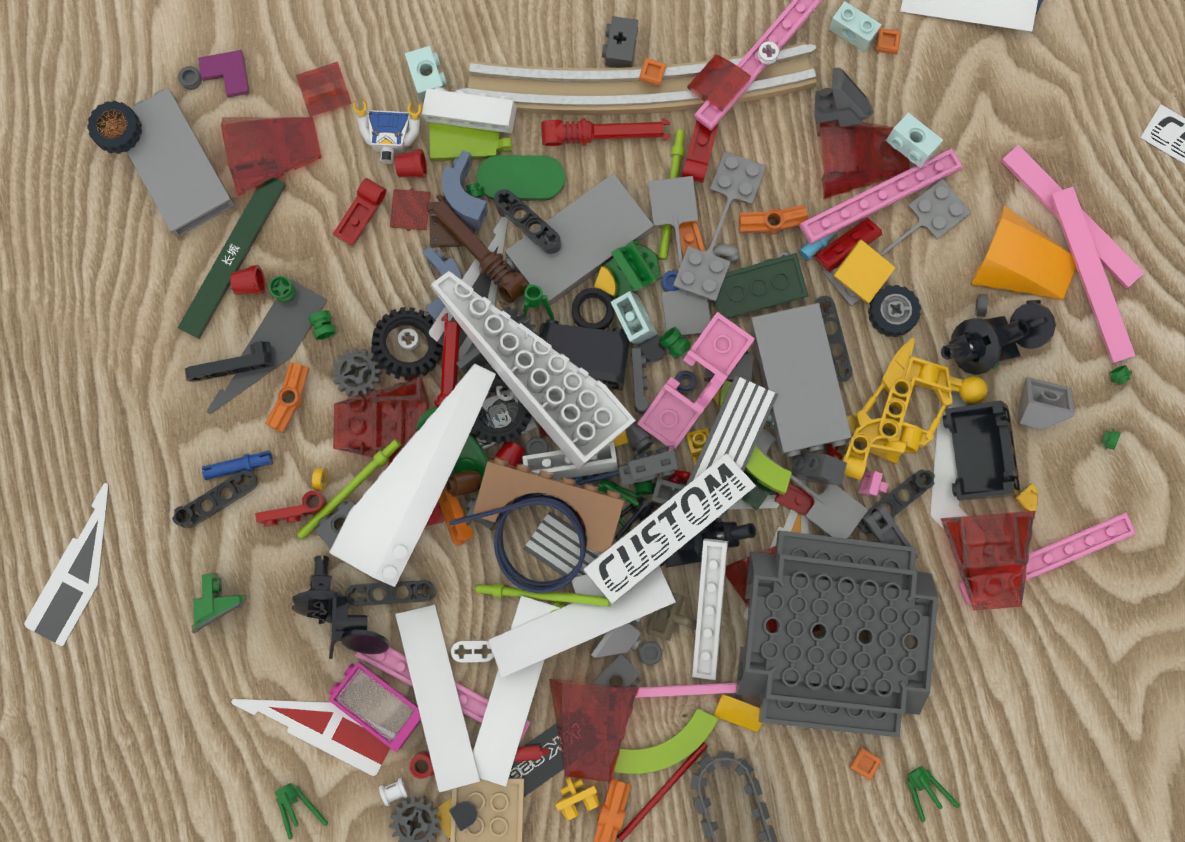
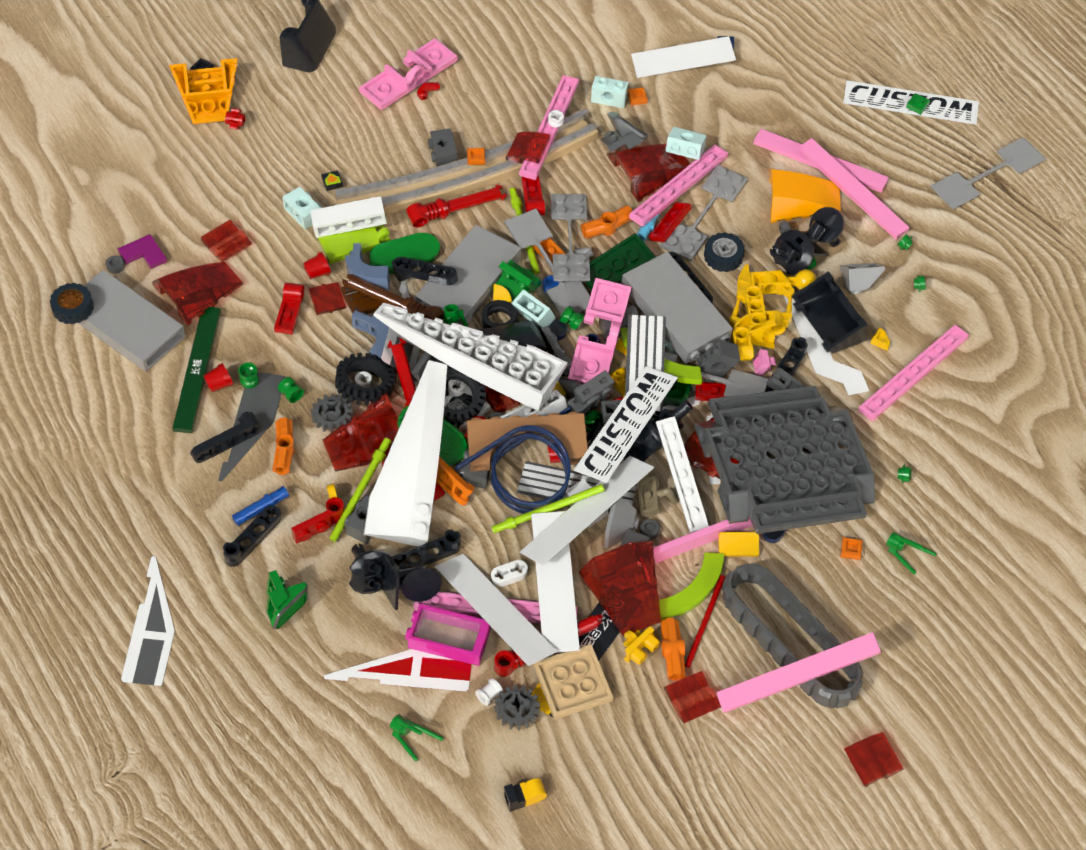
camera: 25 degrees left, 25 degrees down
(388, 130) = (289, 250): torso -> none
(463, 482) = (452, 452): reddish brown brick -> none
(464, 814) = (555, 683): black tile -> none
(475, 43) = (332, 180): none -> tile
(863, 271) = (689, 232): yellow tile -> none
(970, 692) = (904, 473): none -> green plate
(991, 556) = (873, 376): clear red wedge -> none

